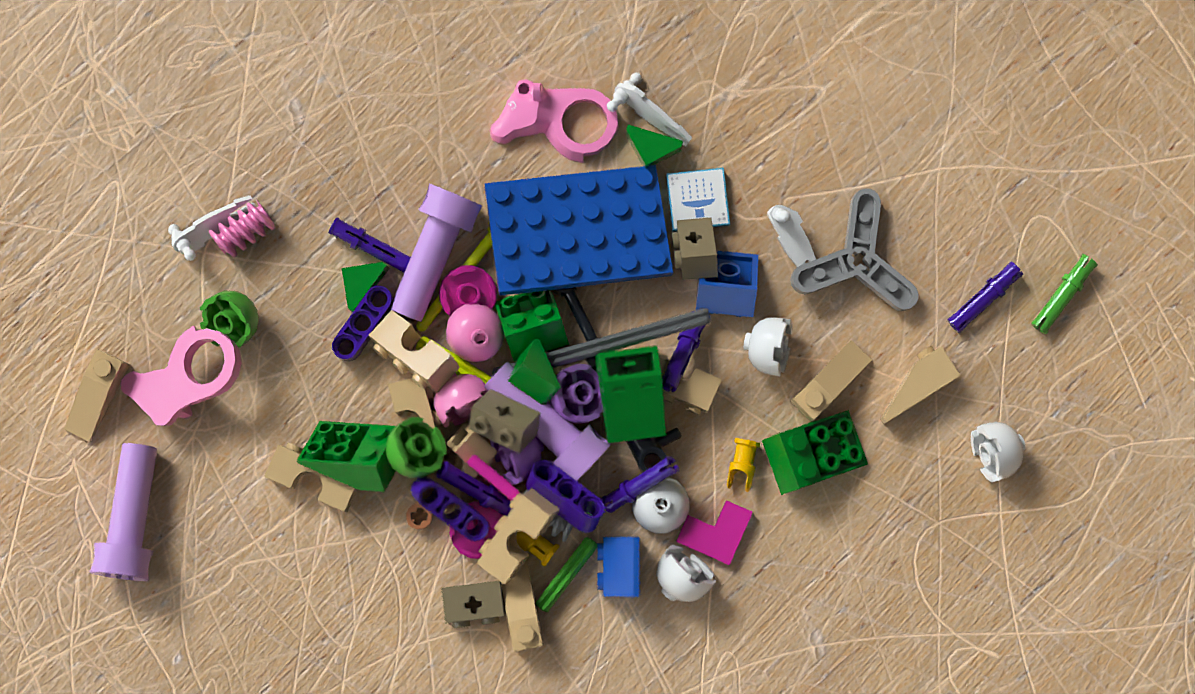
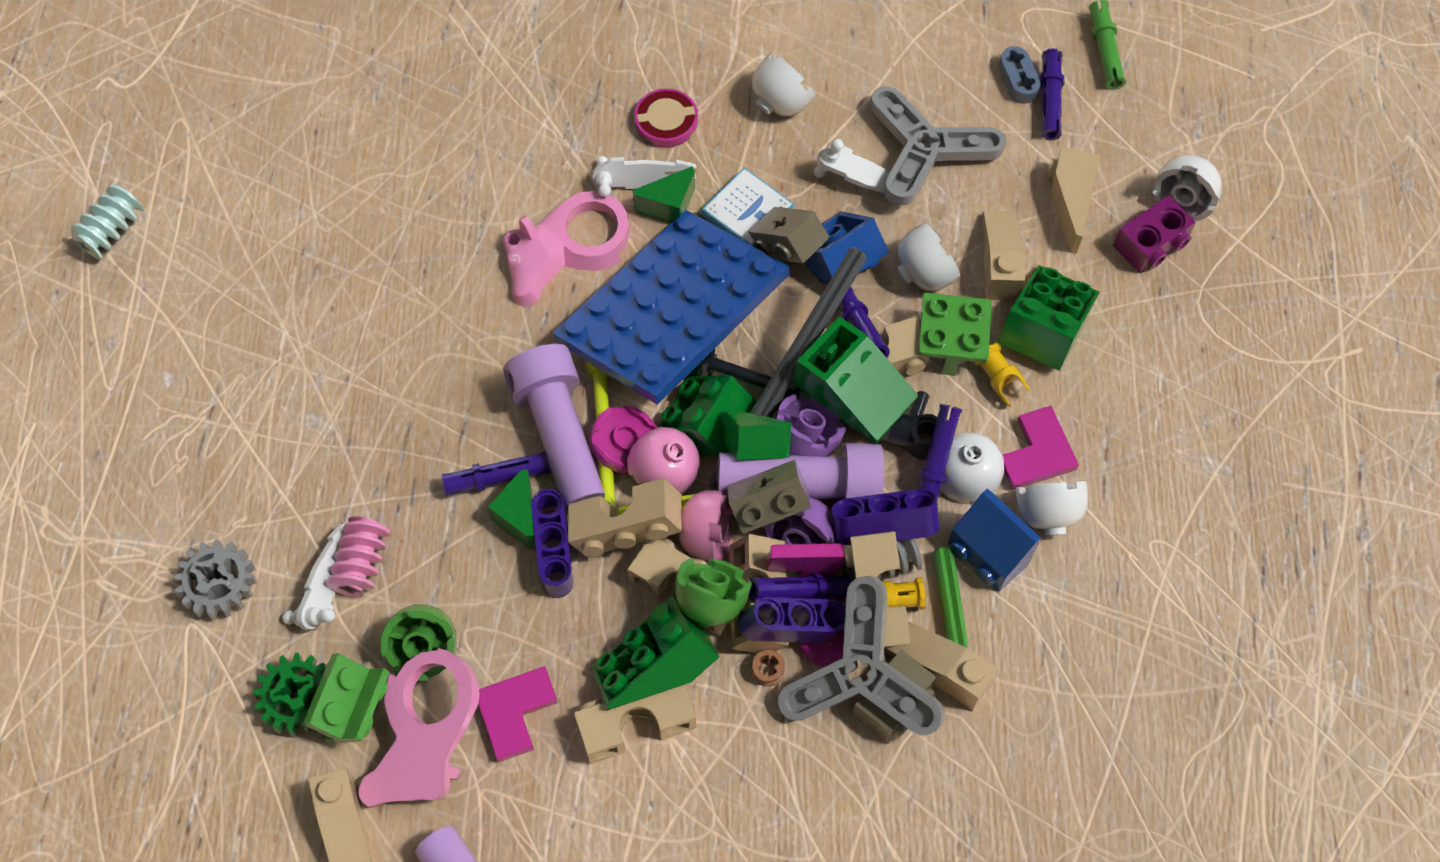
camera: 45 degrees left, 20 degrees down
(138, 172) = (218, 593): none -> light grey gear
(139, 273) = (280, 697): none -> green gear
(157, 319) = (346, 700): none -> bright green bracket
(251, 399) = (504, 708): none -> dark pink tile
(473, 563) = (885, 685): none -> light grey piece
(709, 81) = (666, 117): none -> tile
(737, 410) = (955, 329): none -> bright green bracket
(800, 131) = (780, 87): none -> white cylinder
(942, 453) = (1151, 230): none -> magenta brick
(974, 259) = (1013, 76): none -> sand blue beam

